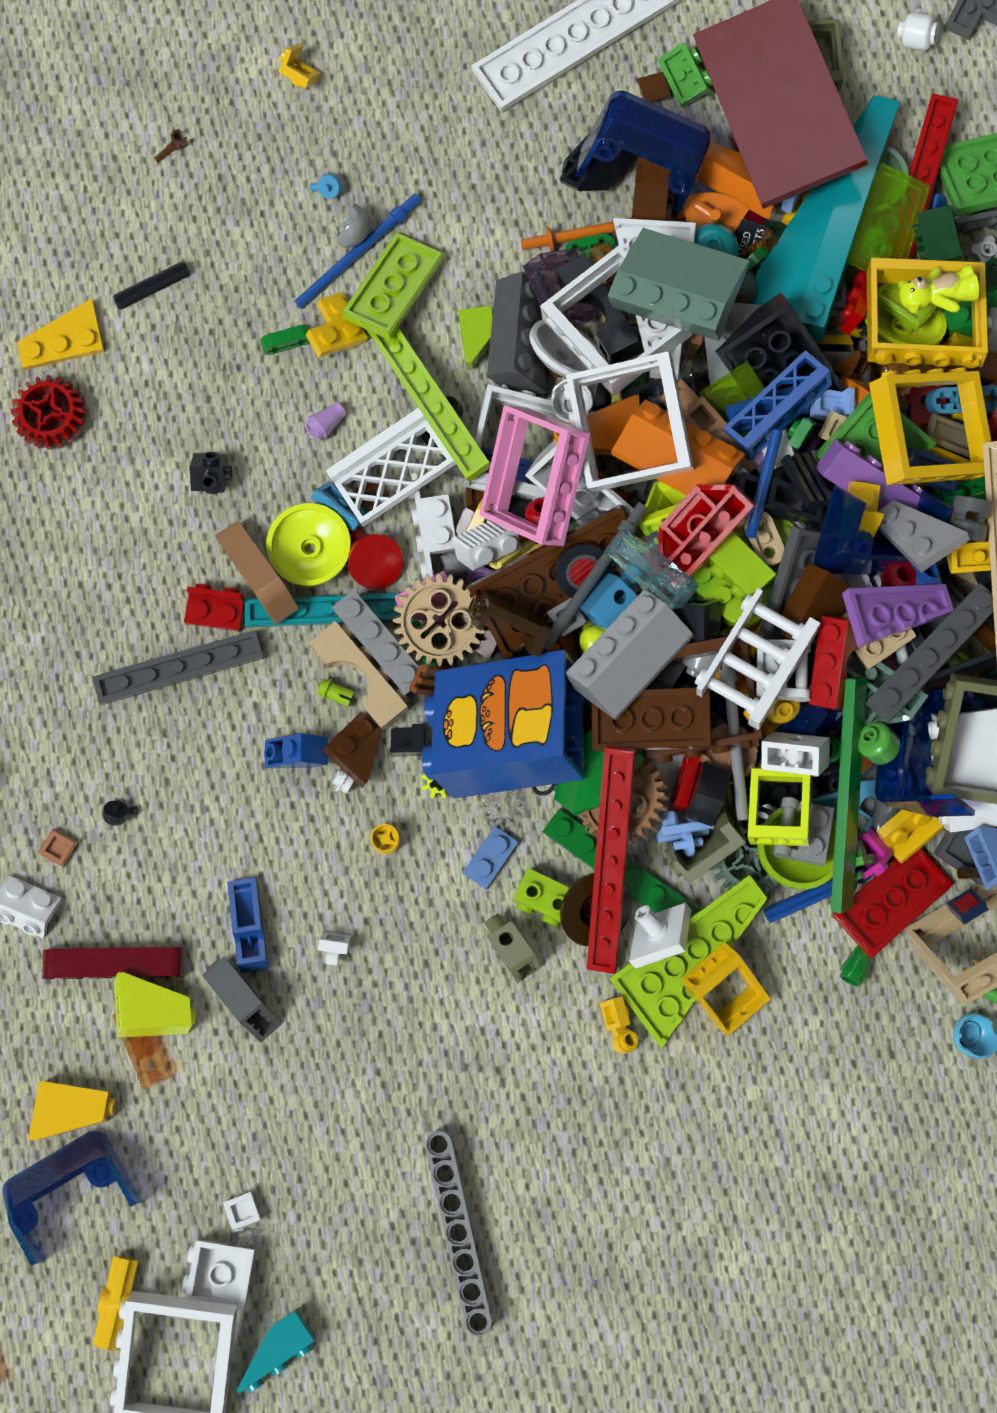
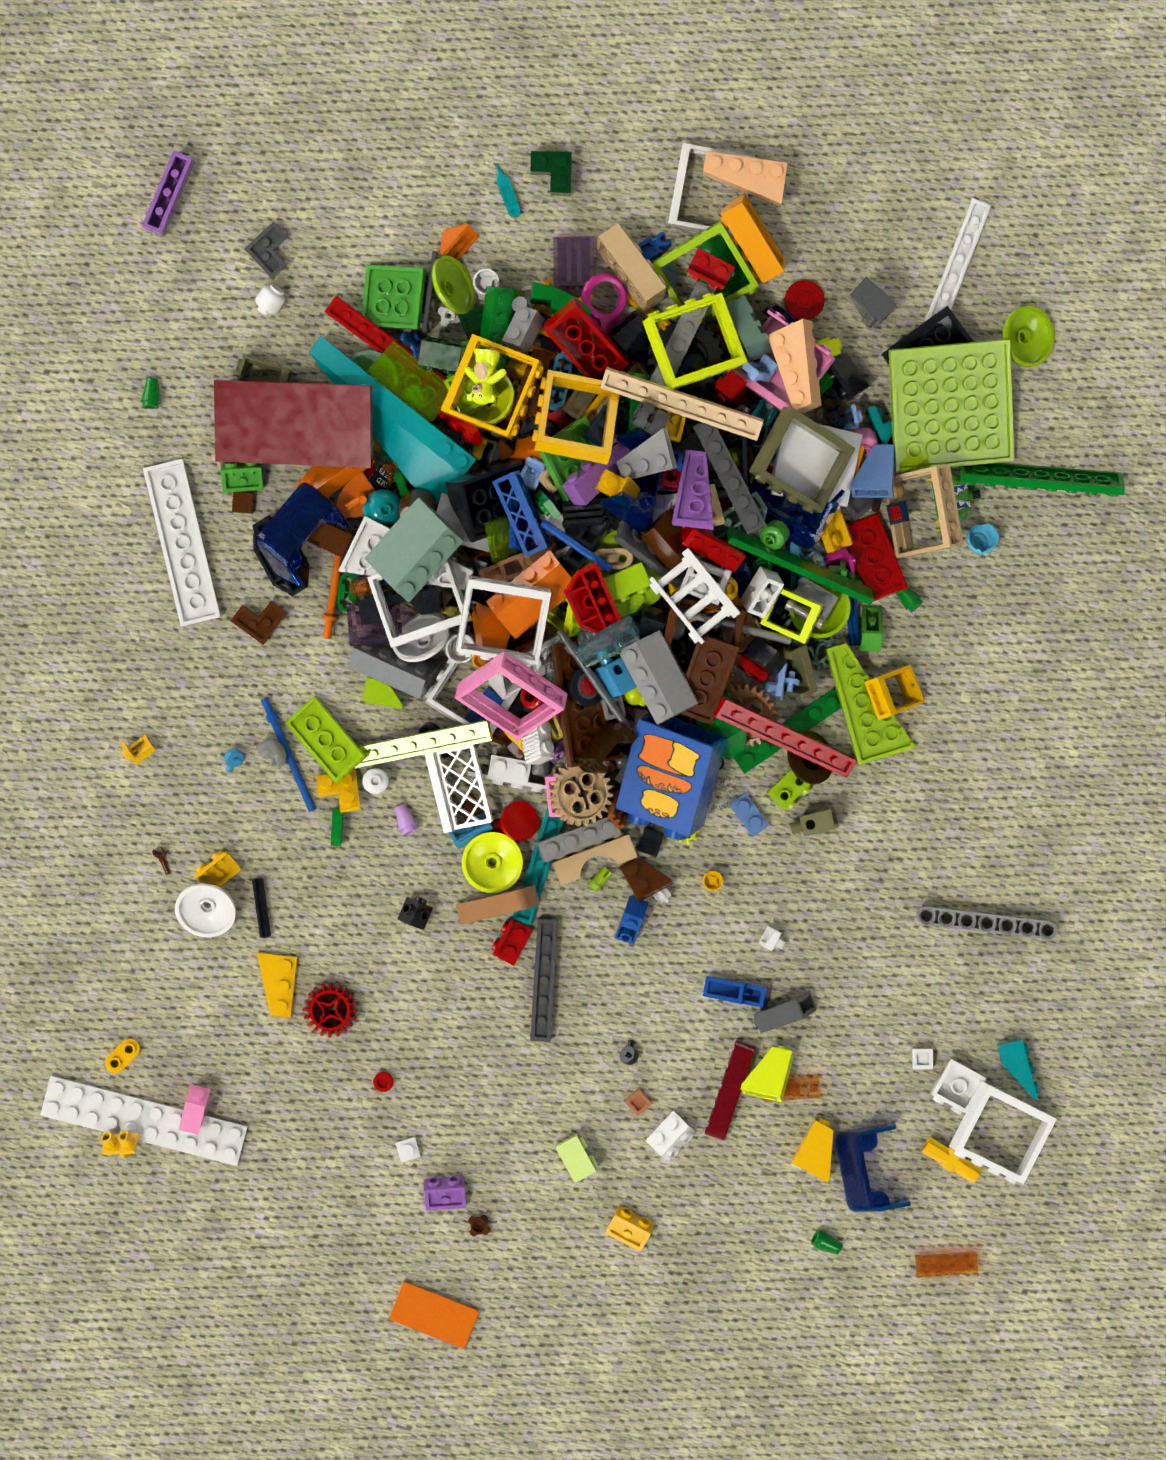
camera: 80 degrees left, 10 degrees up
(123, 213) = (204, 918): none -> white dish
(178, 213) = (219, 870): none -> yellow bracket
(247, 1233) = (939, 1059): clear hand -> none
(362, 364) = (375, 781): none -> white head
(507, 161) = (260, 626): none -> reddish brown plate
(616, 1019) = (886, 769): yellow plate -> none
(659, 934) = (843, 722): white tile -> none
(797, 929) = (871, 628): none -> bright green slope

